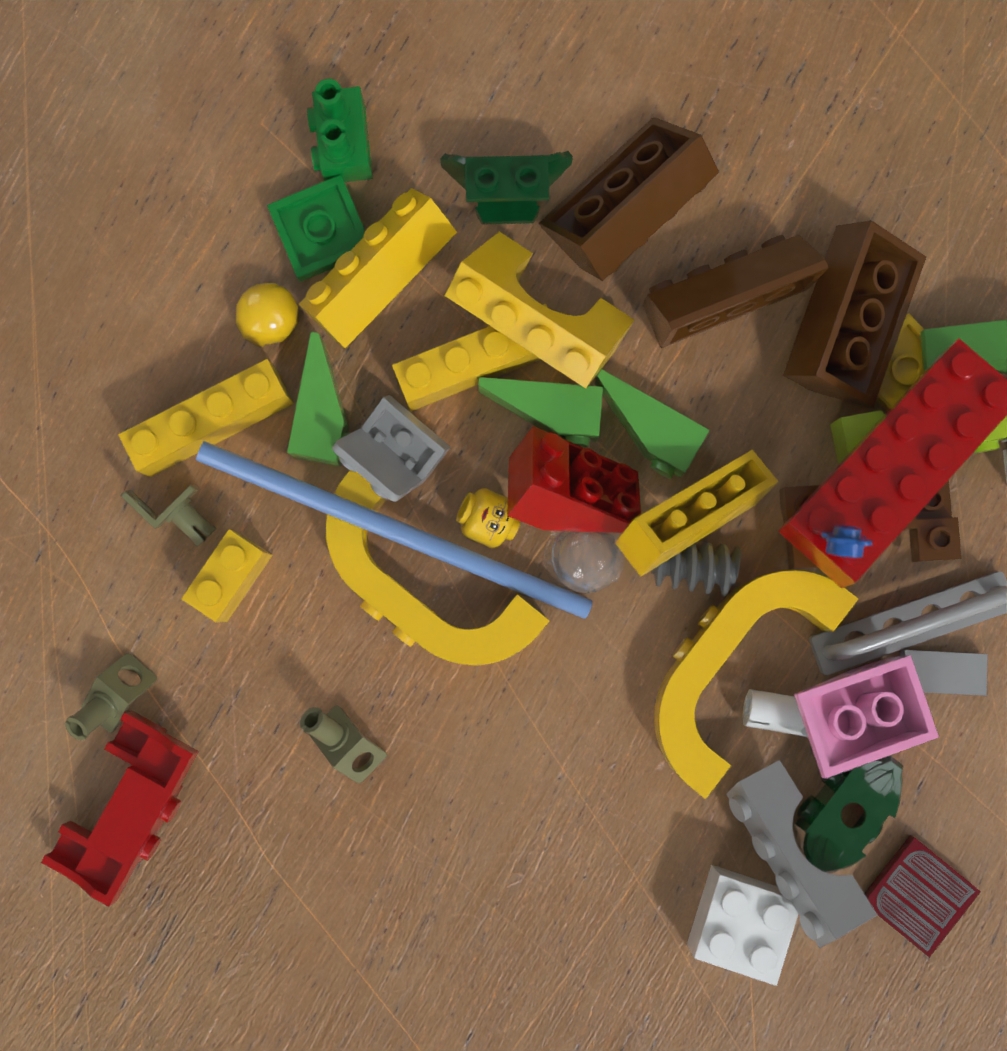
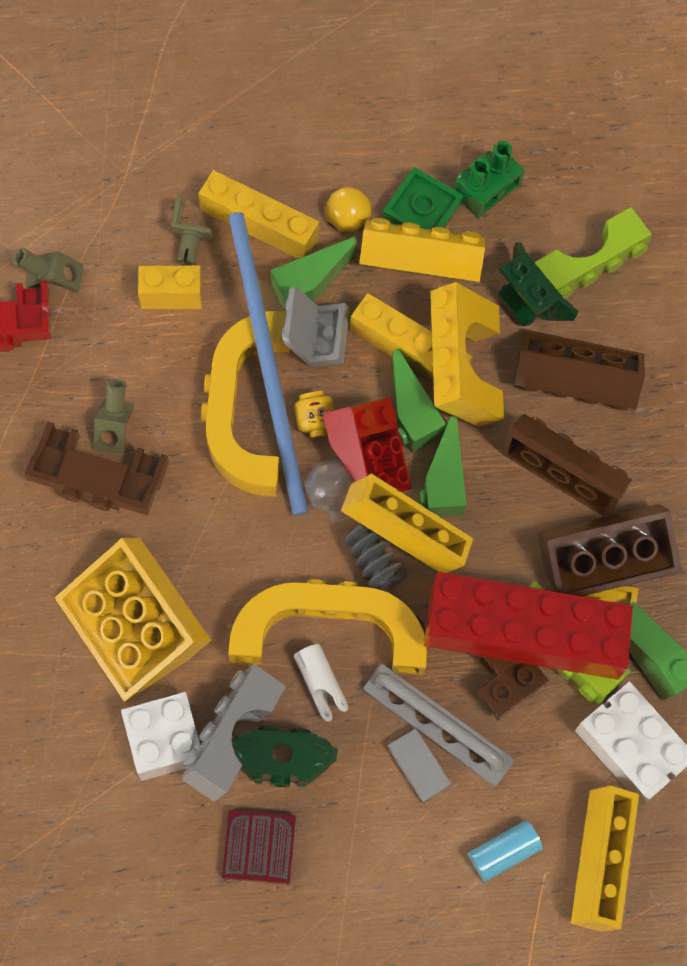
camera: 50 degrees right, 15 degrees down
(390, 824) = (93, 478): none -> reddish brown bracket
(508, 45) = (622, 238): none -> lime arch
(589, 869) = (132, 618): none -> yellow slope
(846, 541) = (447, 602): blue plate -> none
(866, 714) = (351, 715): bright pink slope -> none

